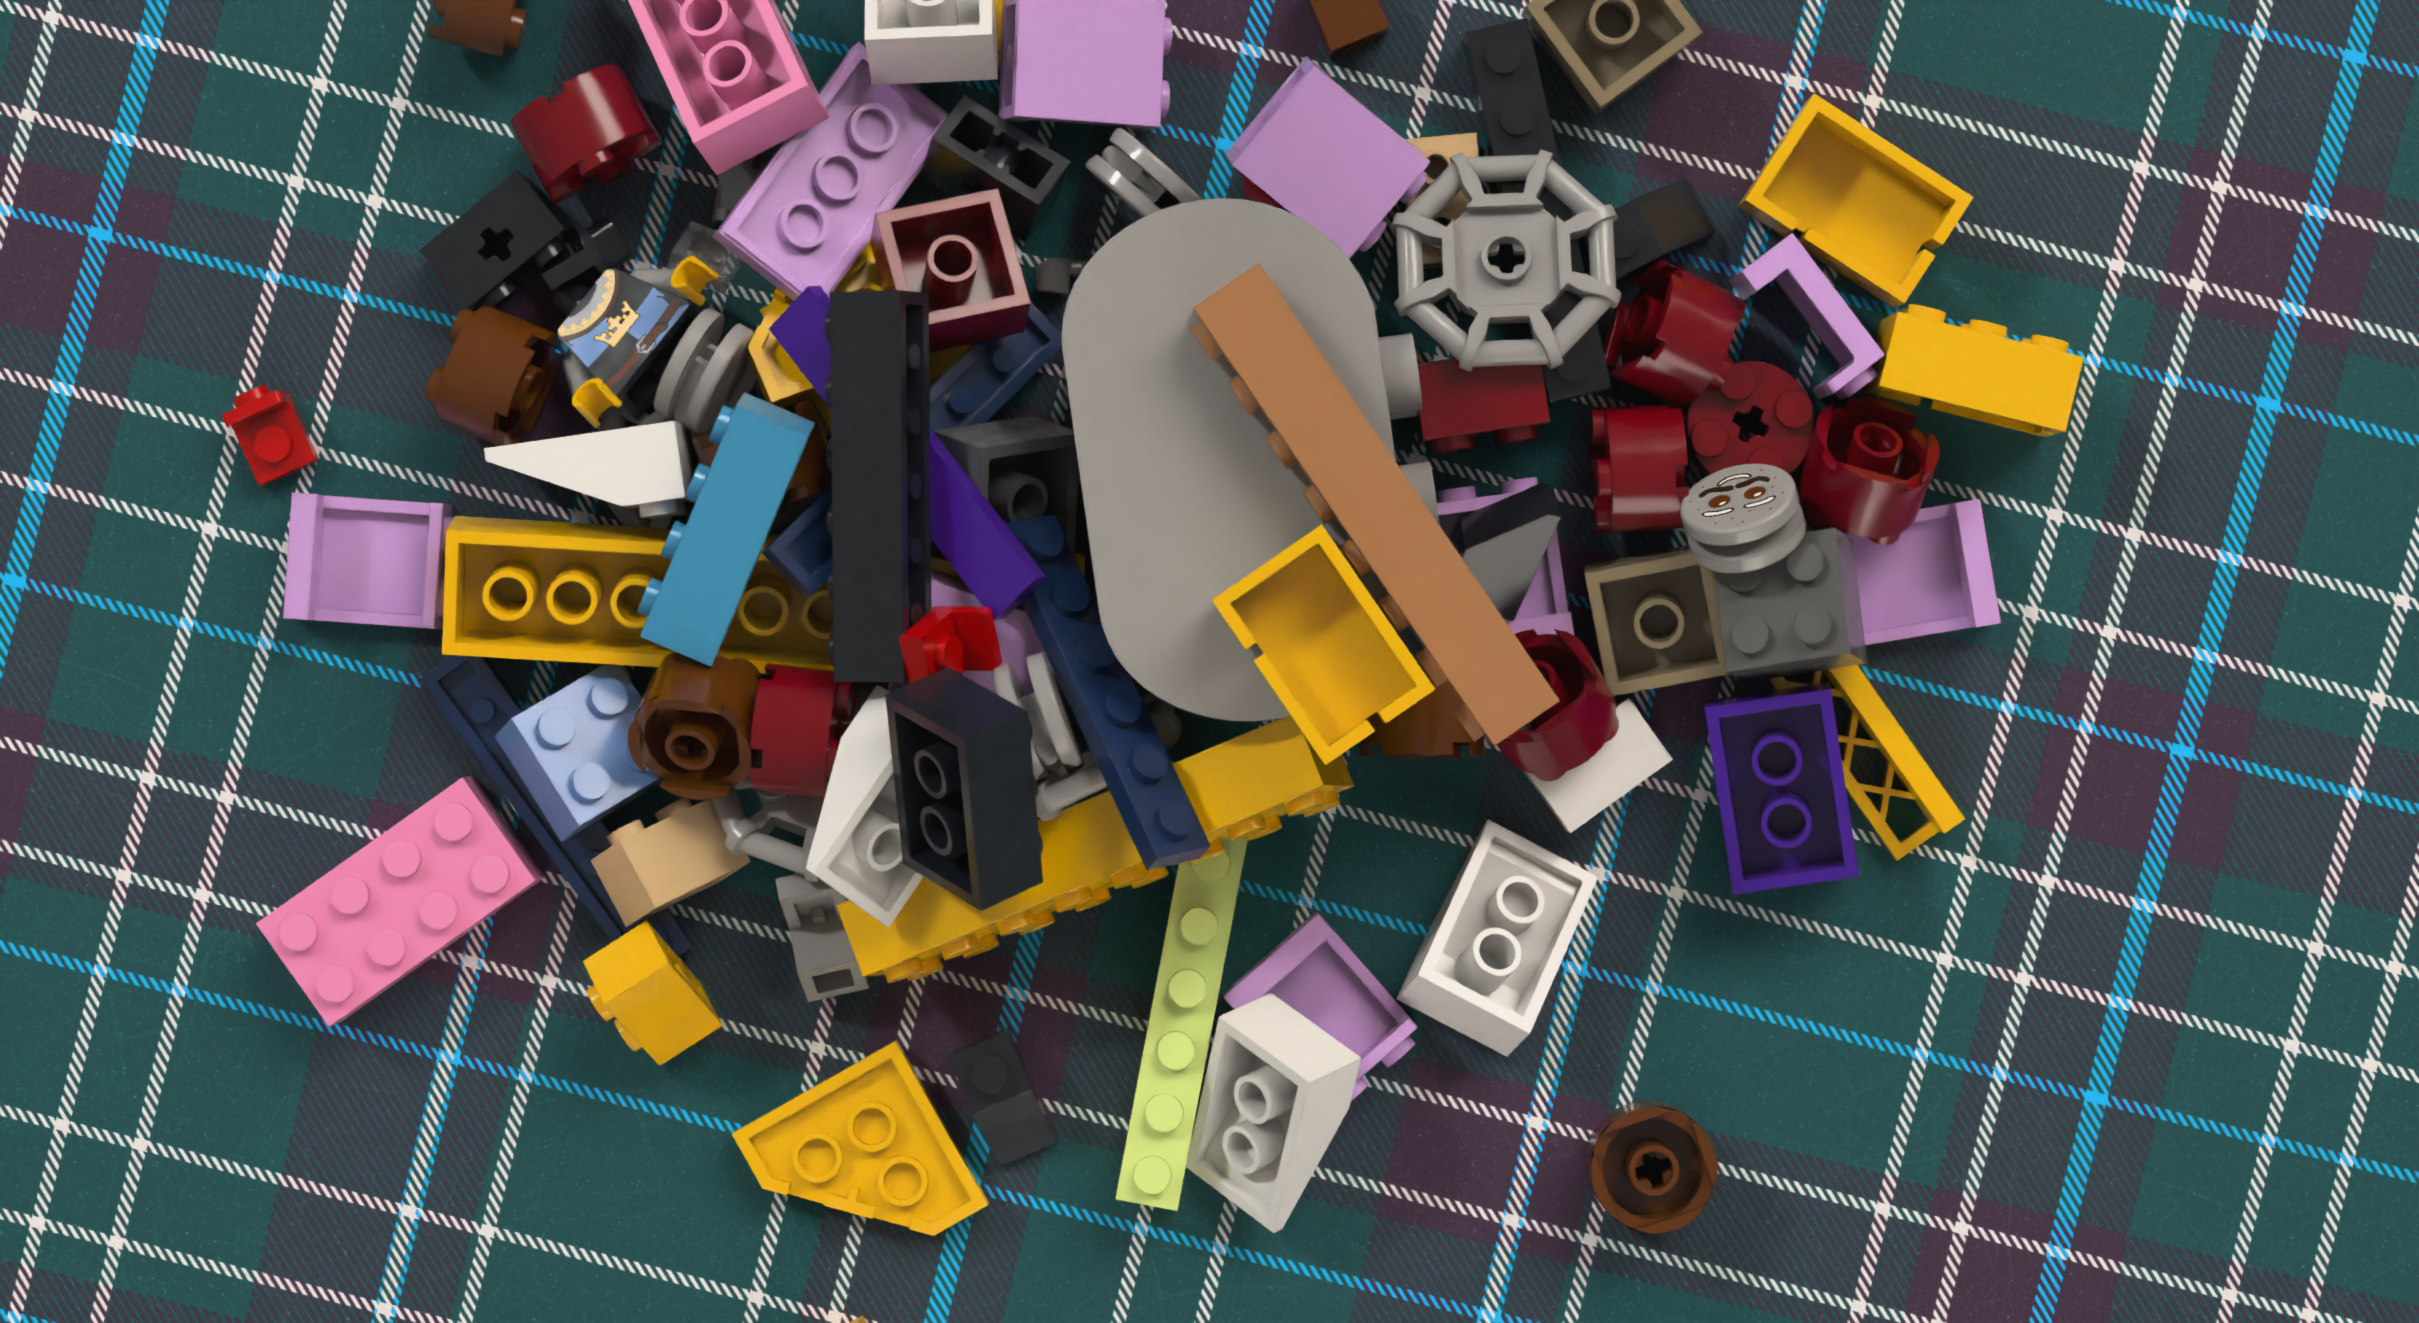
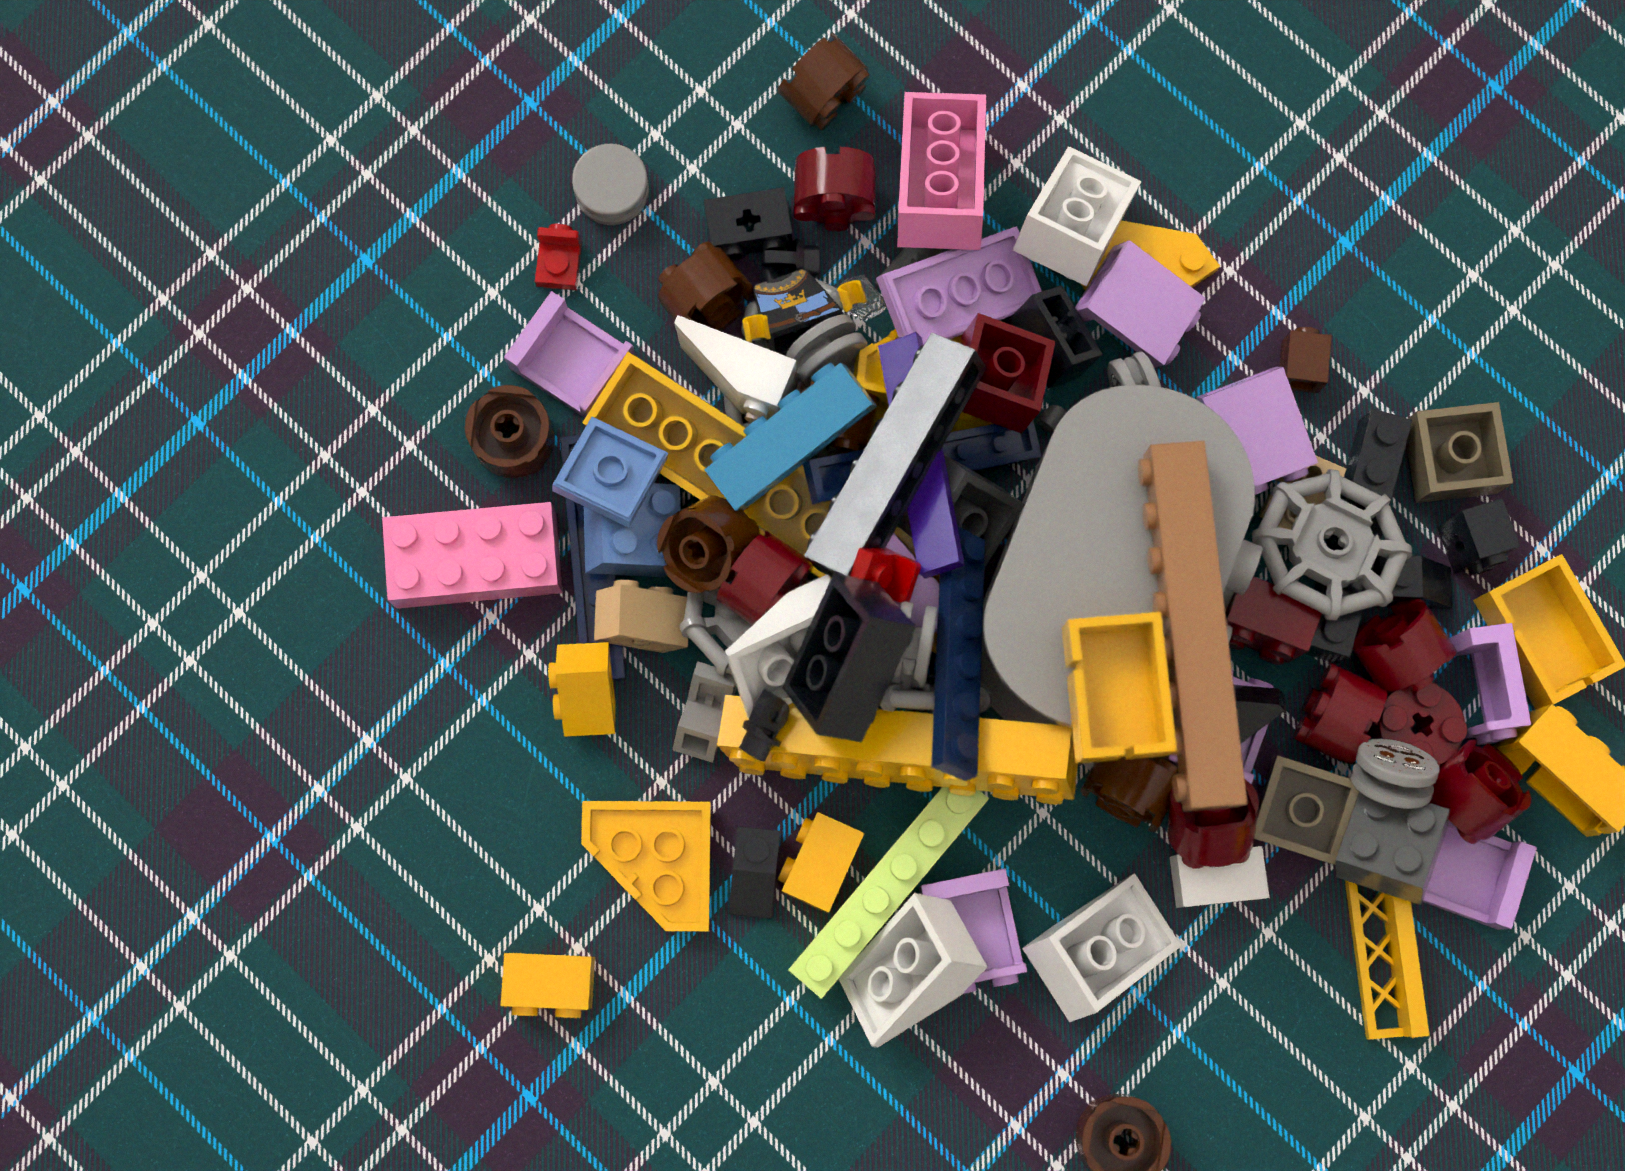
camera: 25 degrees right, 10 degrees down
(279, 292) = (610, 184): none -> light grey head
(318, 696) = (494, 415): none -> reddish brown brick
(518, 702) = (610, 471): none -> medium blue tile
(907, 923) = (764, 724): none -> black piece
(1080, 1036) = (820, 862): none -> yellow brick
(1698, 129) = (1479, 538): none -> black brick
(1781, 788) = (1327, 952): dark purple brick -> none

